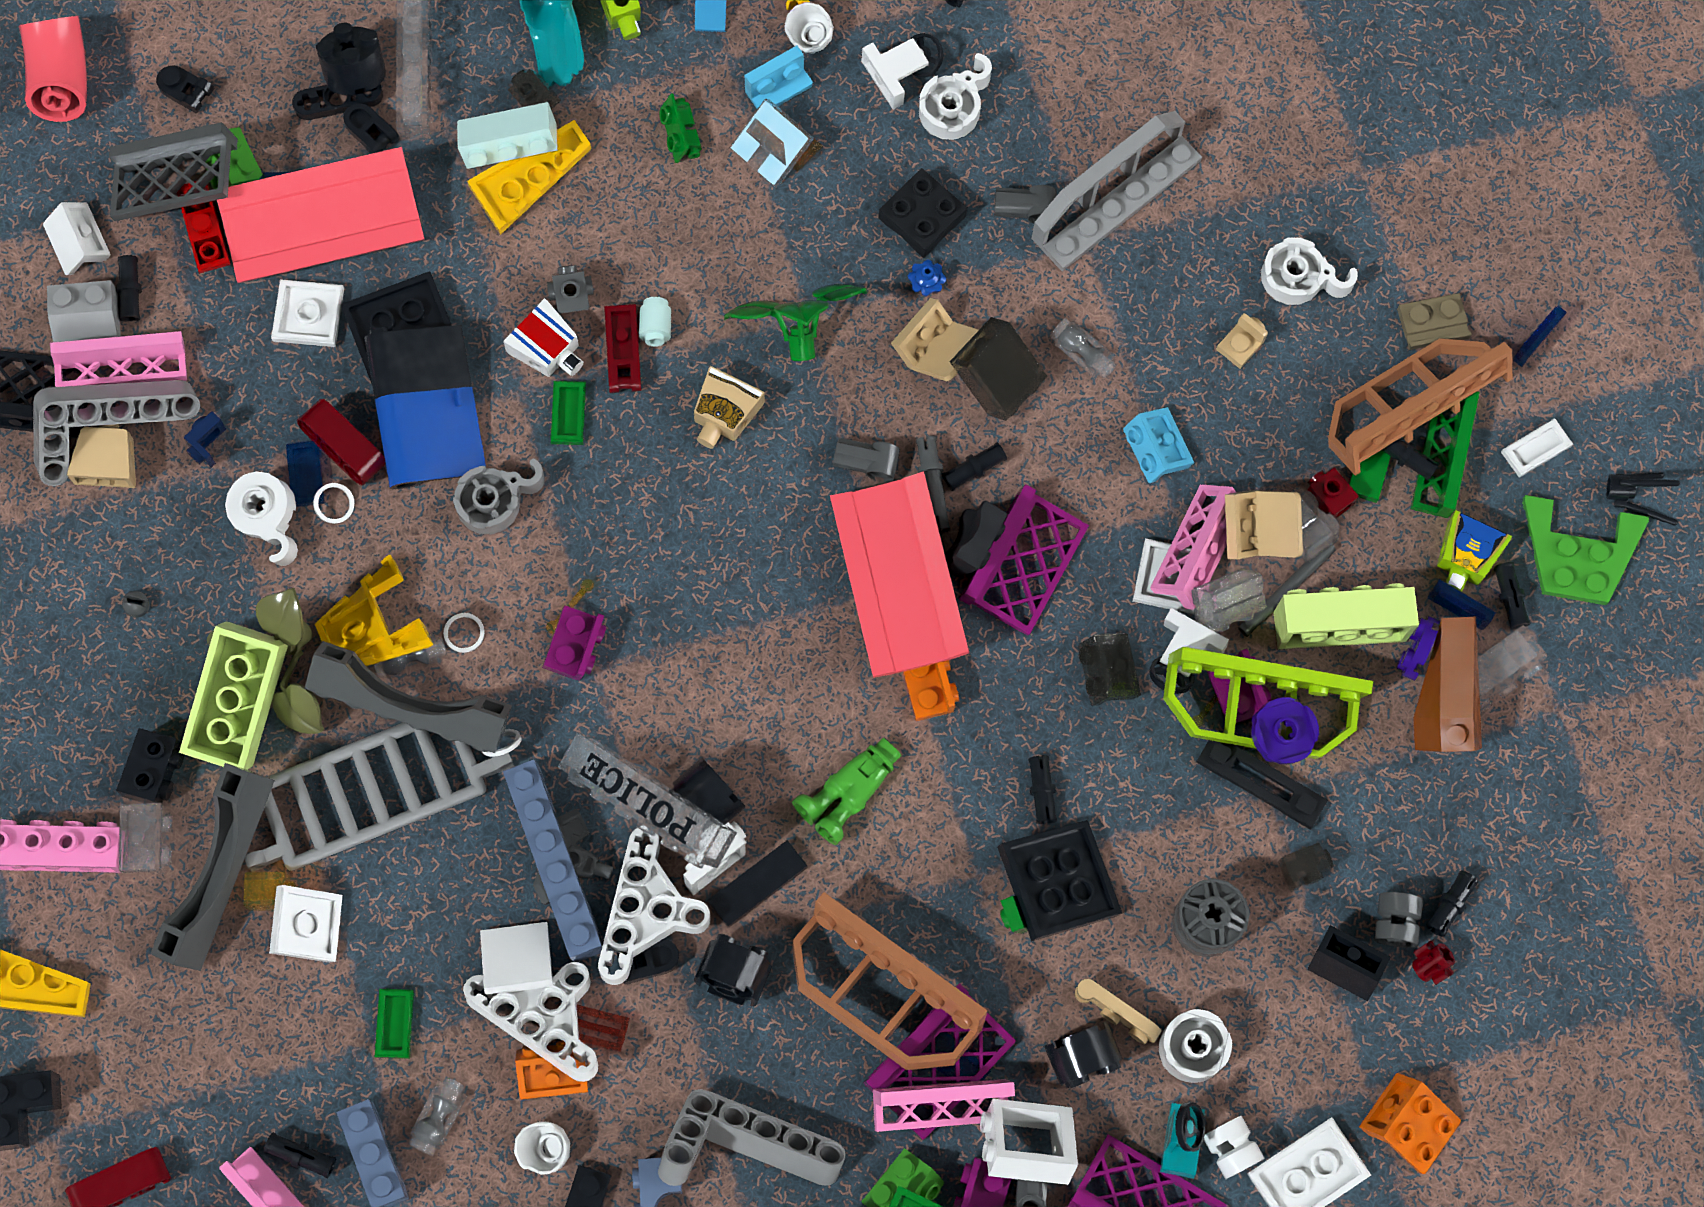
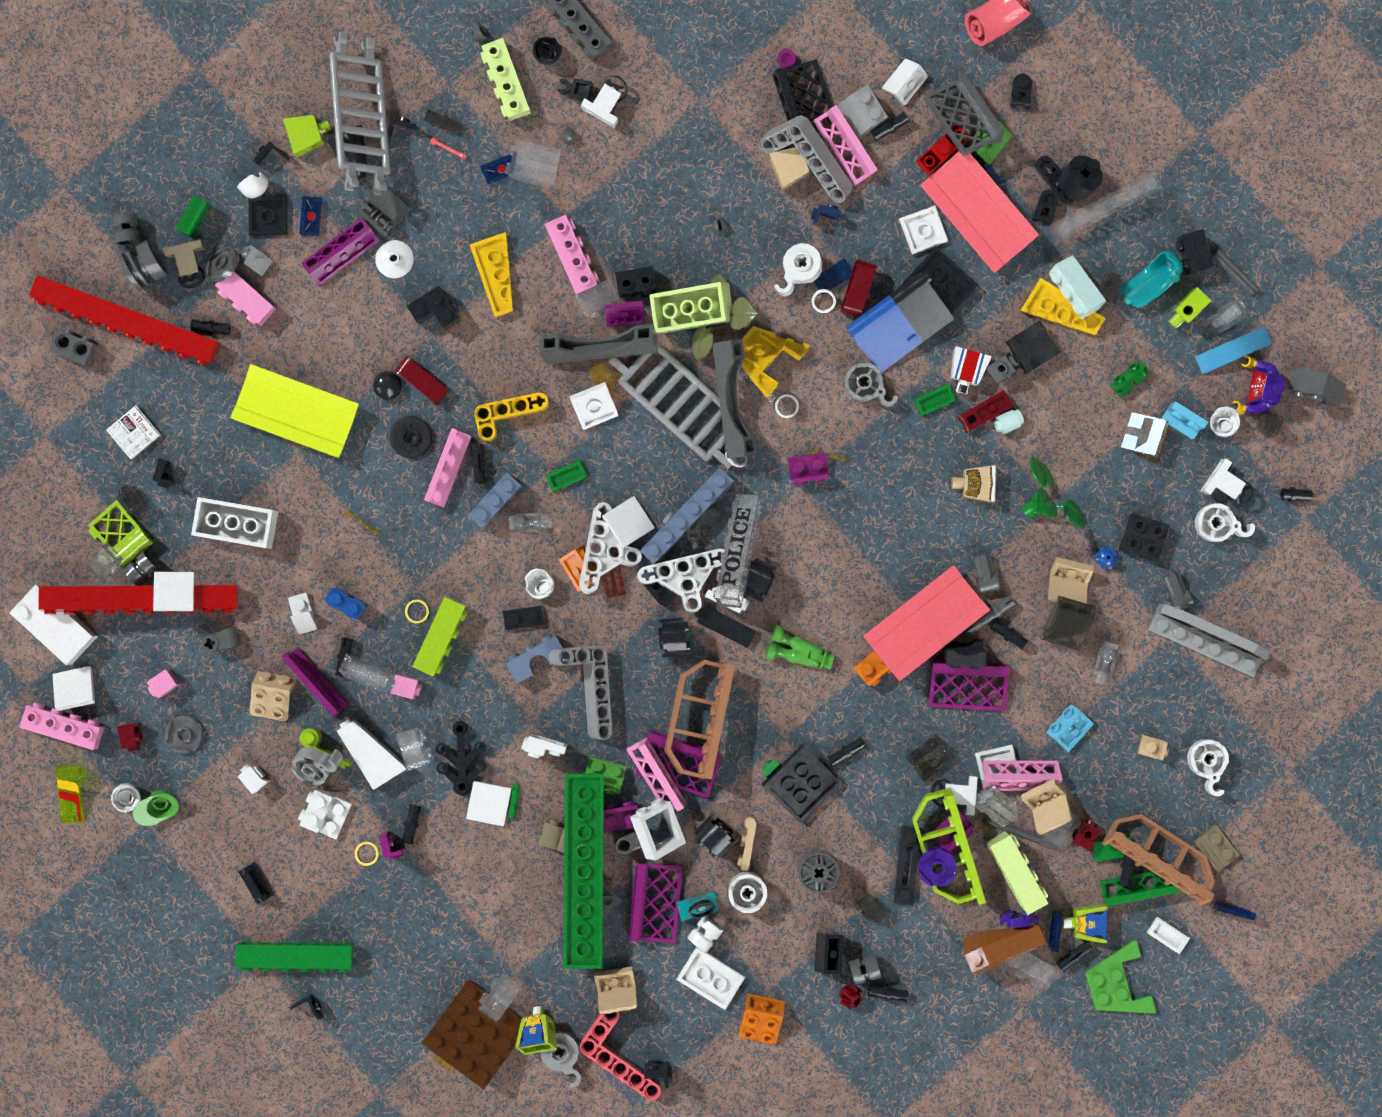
camera: 70 degrees right, 15 degrees up
(188, 806) = (624, 314): none -> magenta bracket
(247, 1059) = (511, 403): none -> yellow beam
(562, 237) = (1032, 347): none -> black brick
(1623, 486) = (1166, 991): black plant -> none

